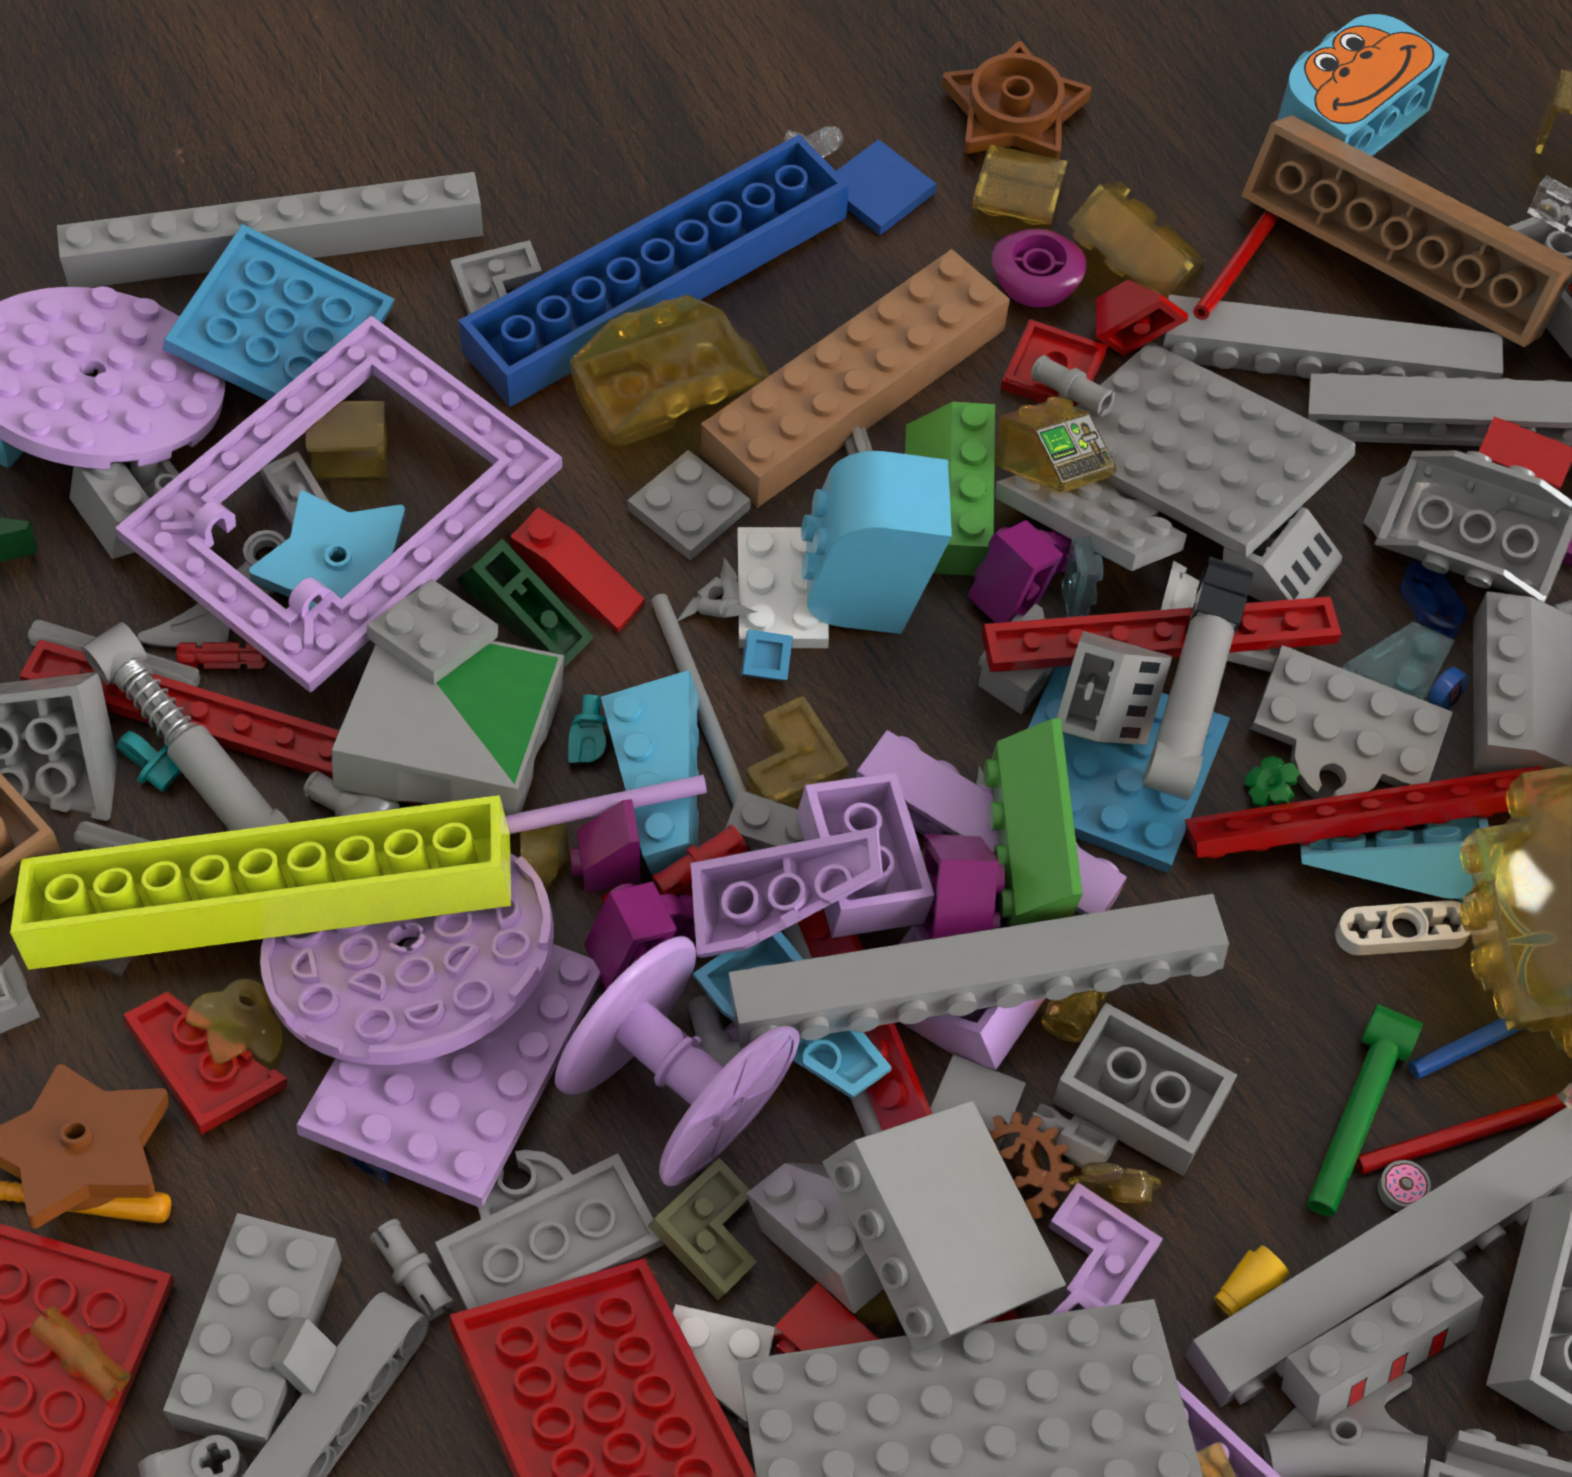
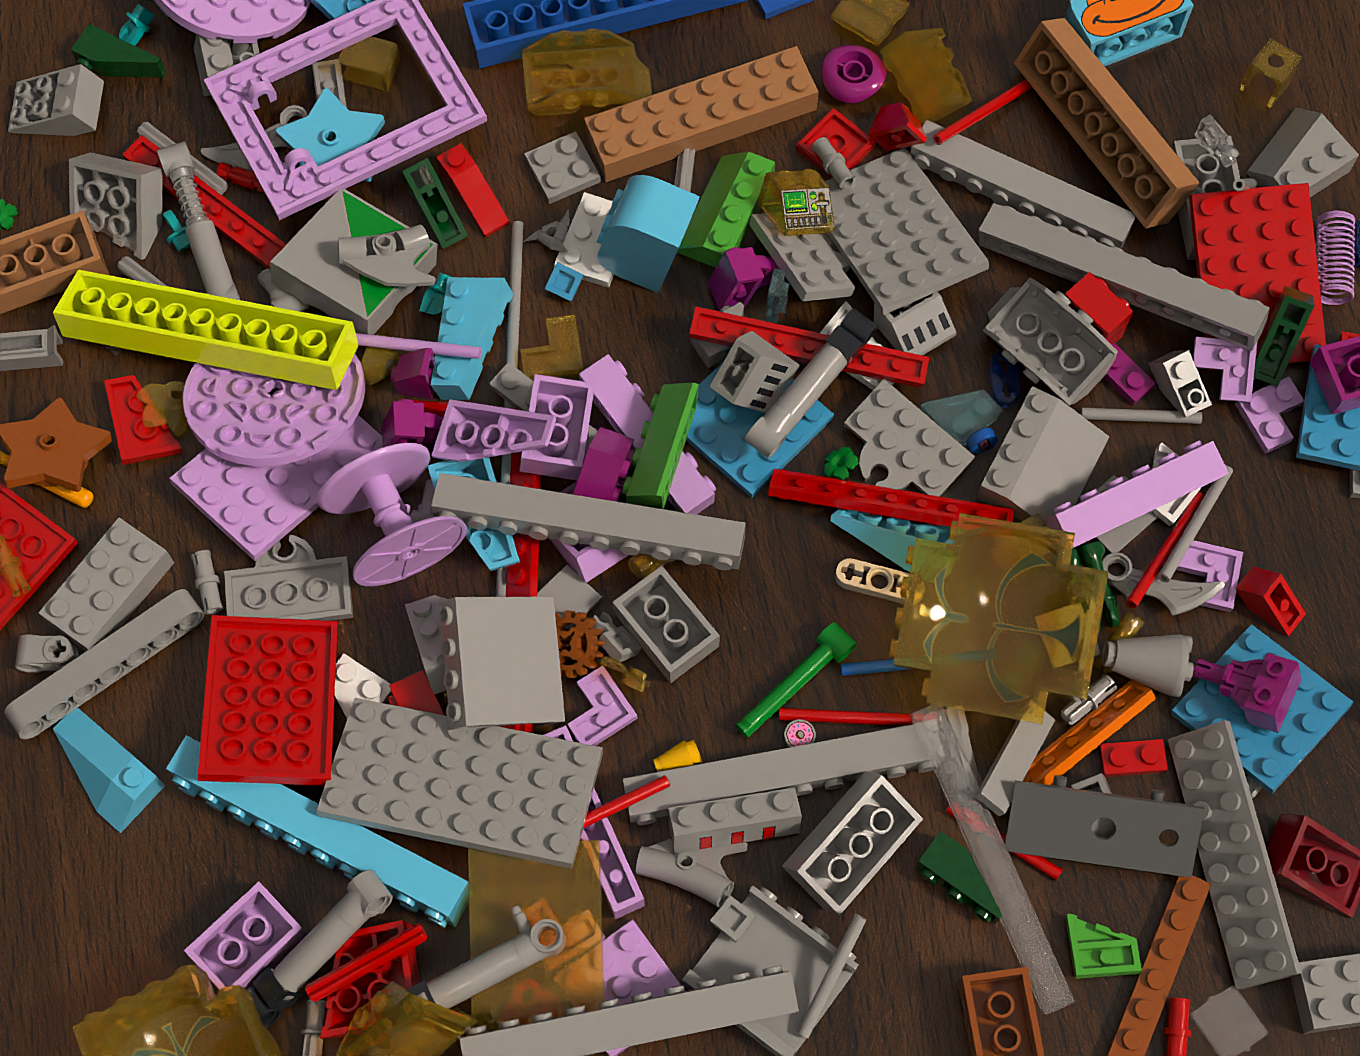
camera: 25 degrees right, 10 degrees up
(303, 1355) = (123, 609): light grey tile -> none
(432, 631) = (363, 204): light grey plate -> none
(507, 689) = (388, 256): none -> light grey pin
(678, 875) = (479, 395): red pin -> none
(696, 1233) = (371, 615): olive plate -> none
(1225, 1364) = (626, 800): none -> red piece

